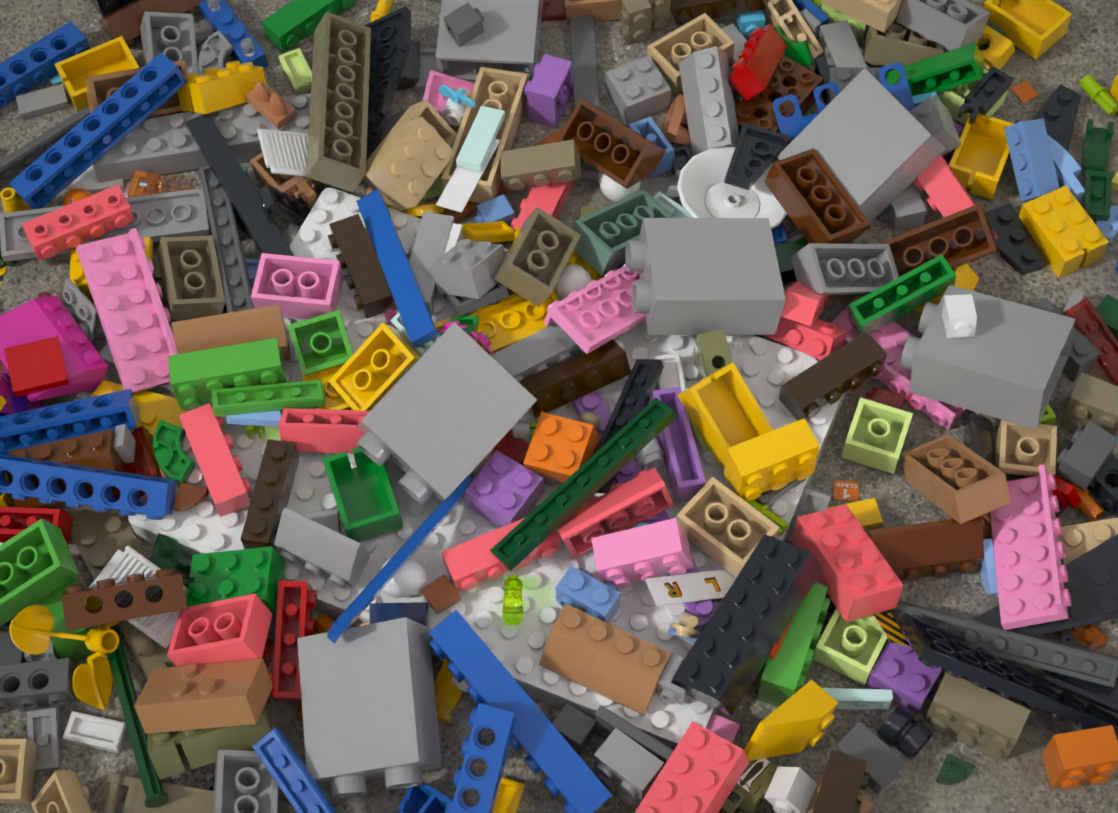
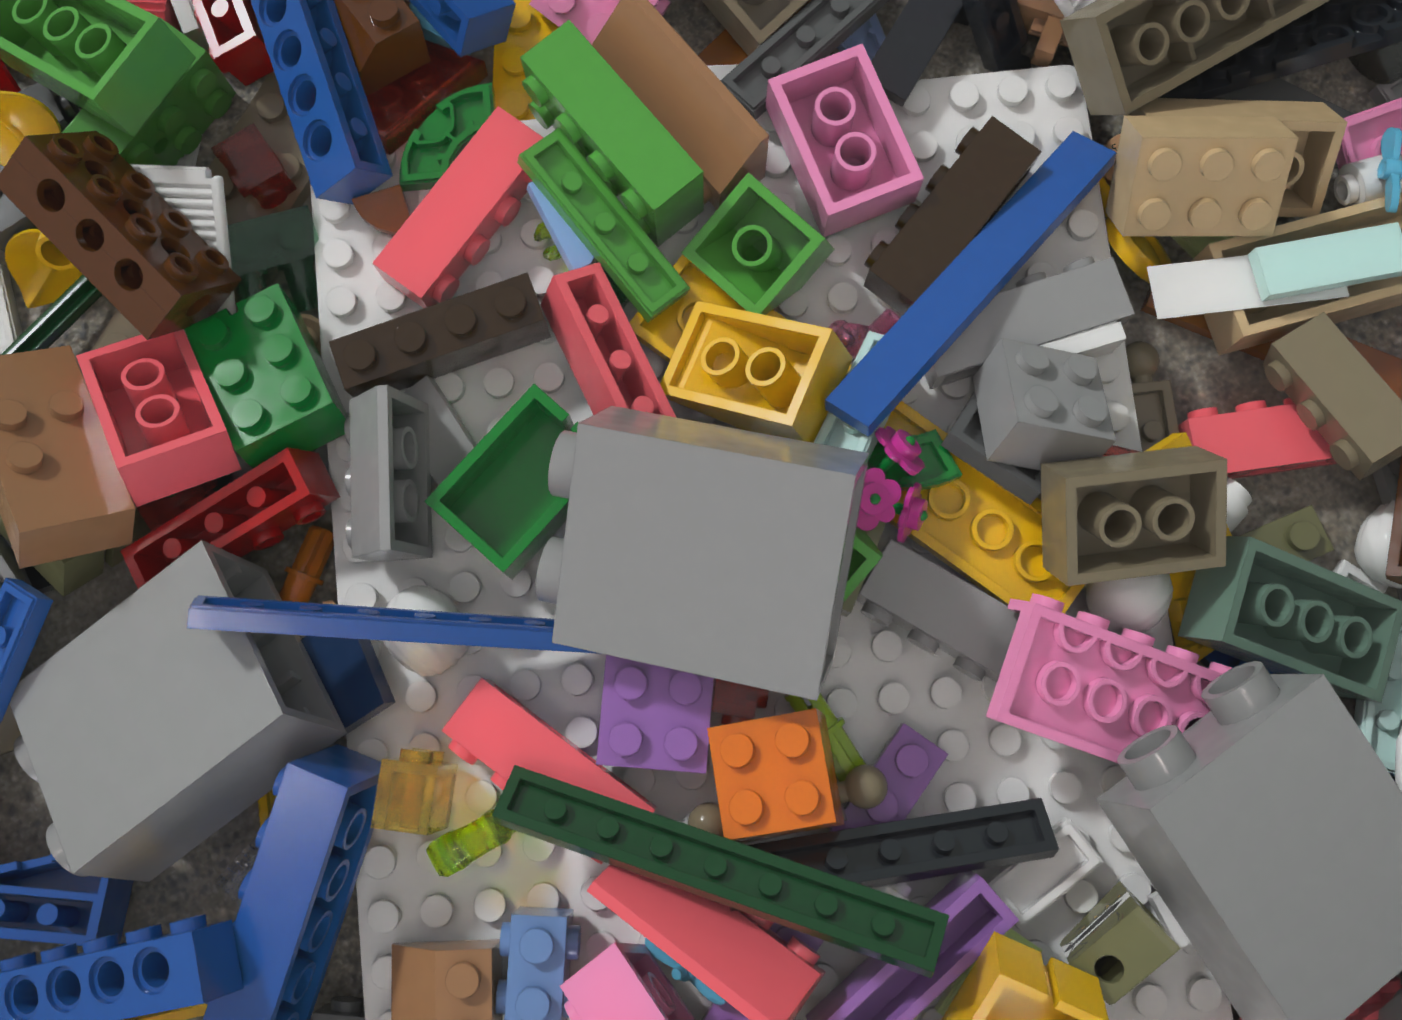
camera: 60 degrees right, 20 degrees up
(111, 543) = (255, 167): none -> clear red brick
(124, 443) = (421, 56): light grey tile -> none
(440, 594) = (426, 711): dark orange tile -> none
(476, 603) = (414, 792): none -> clear yellow brick
(488, 231) = (1151, 383): yellow tile -> none
(495, 210) = (1200, 370): medium blue brick -> none
(576, 377) = (936, 710): dark brown brick -> none

